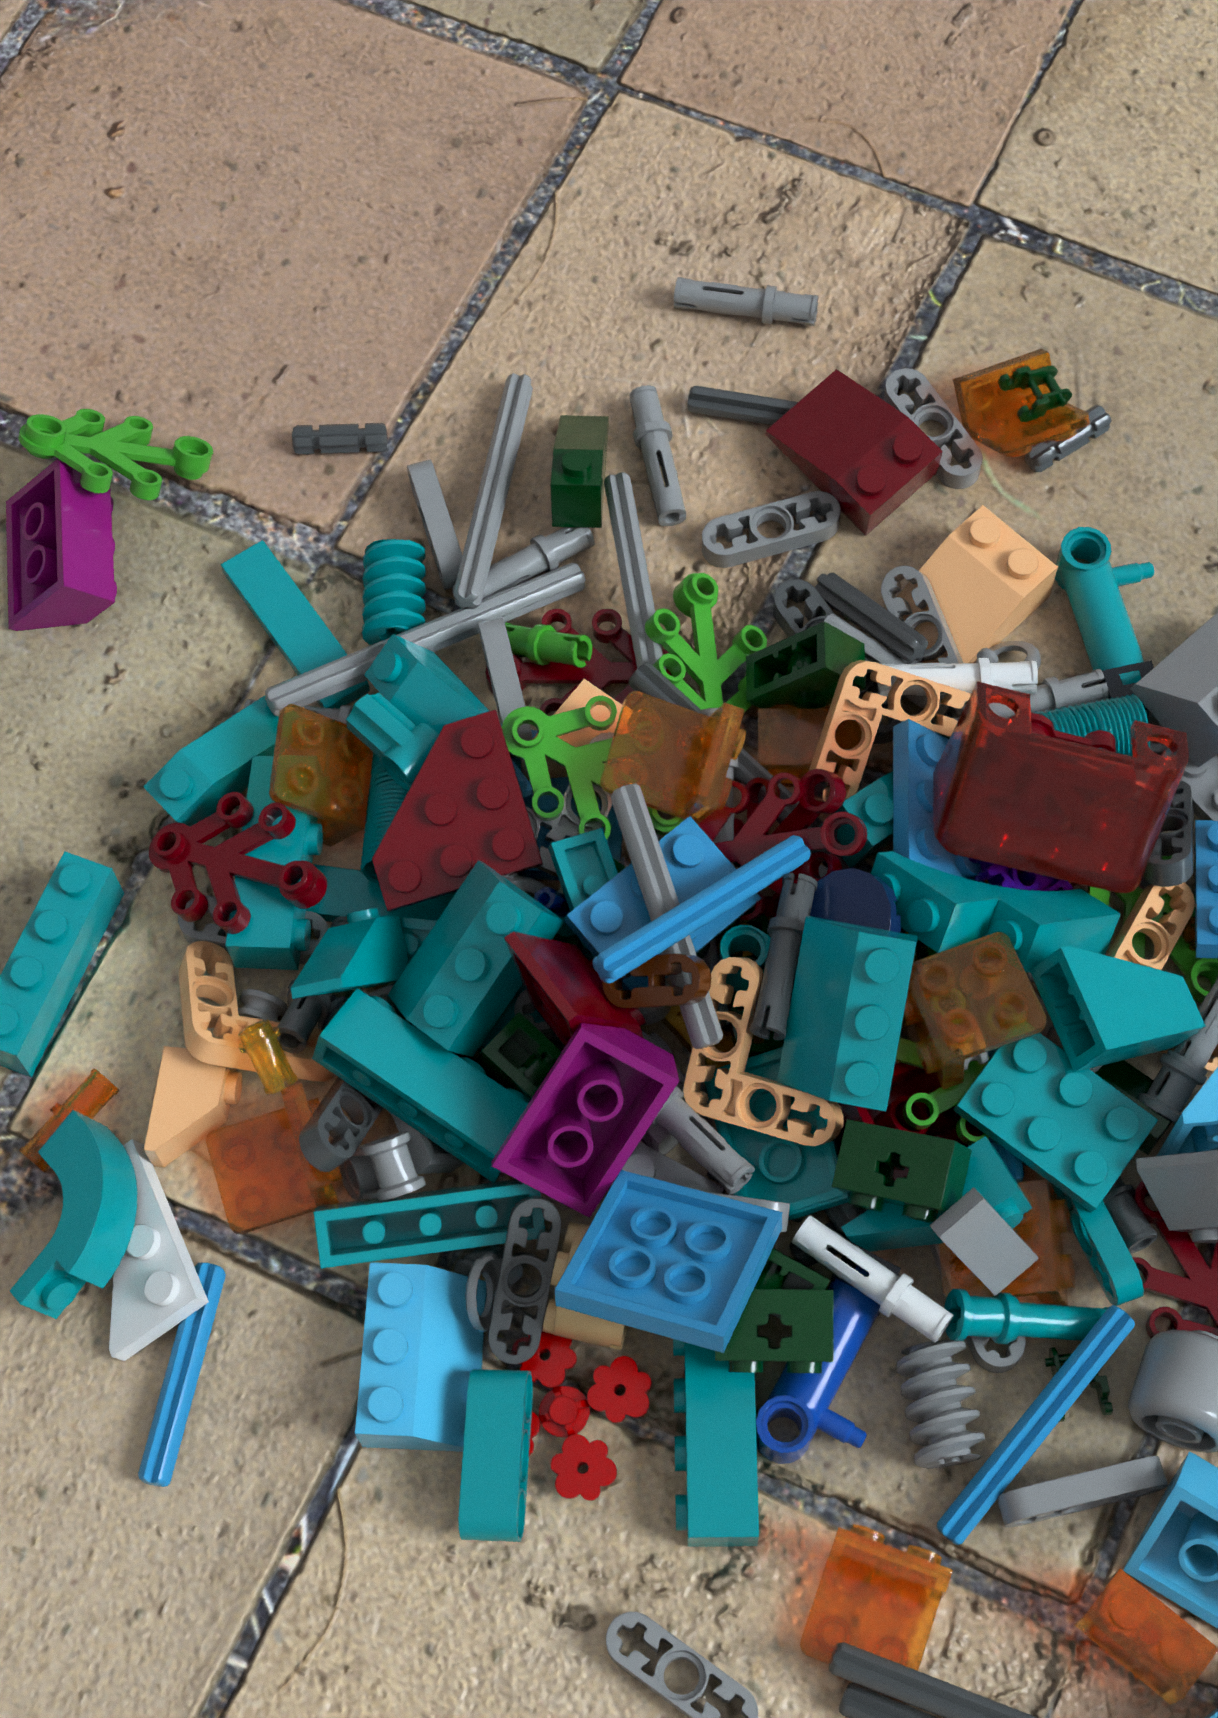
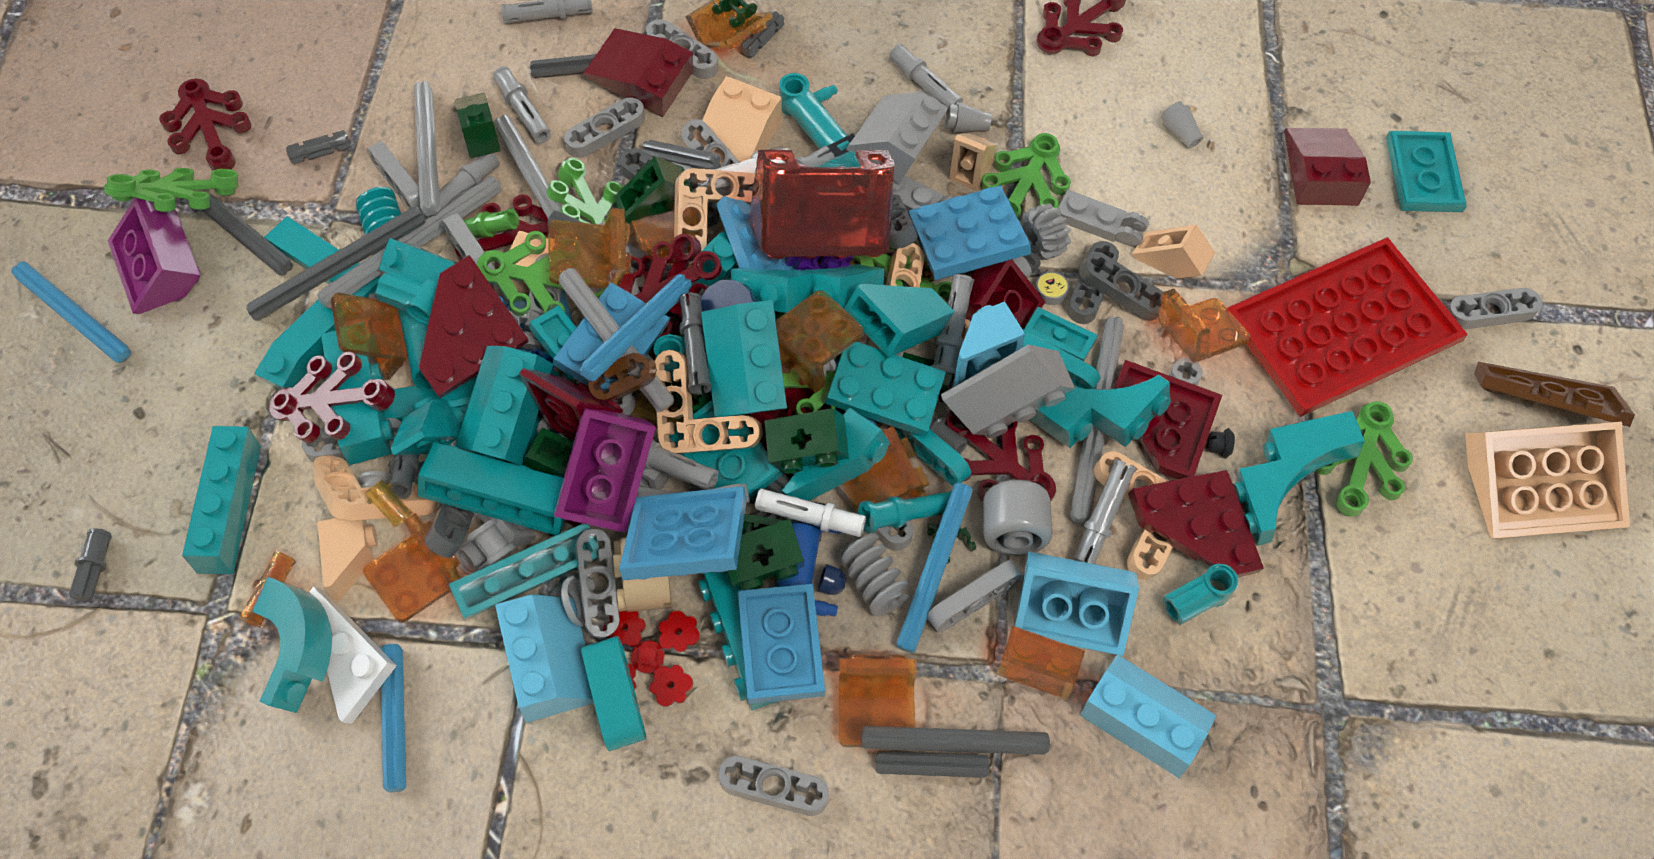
camera: 25 degrees left, 5 degrees down
(191, 346) = (197, 94): none -> dark red plant
(200, 555) = (248, 236): none -> dark grey axle
(309, 644) = (335, 264): none -> dark grey axle
(759, 1472) = (781, 644): none -> dark azure plate
(872, 1389) = (831, 580): none -> dark blue hinge
(984, 1241) = (869, 465): light grey tile -> none

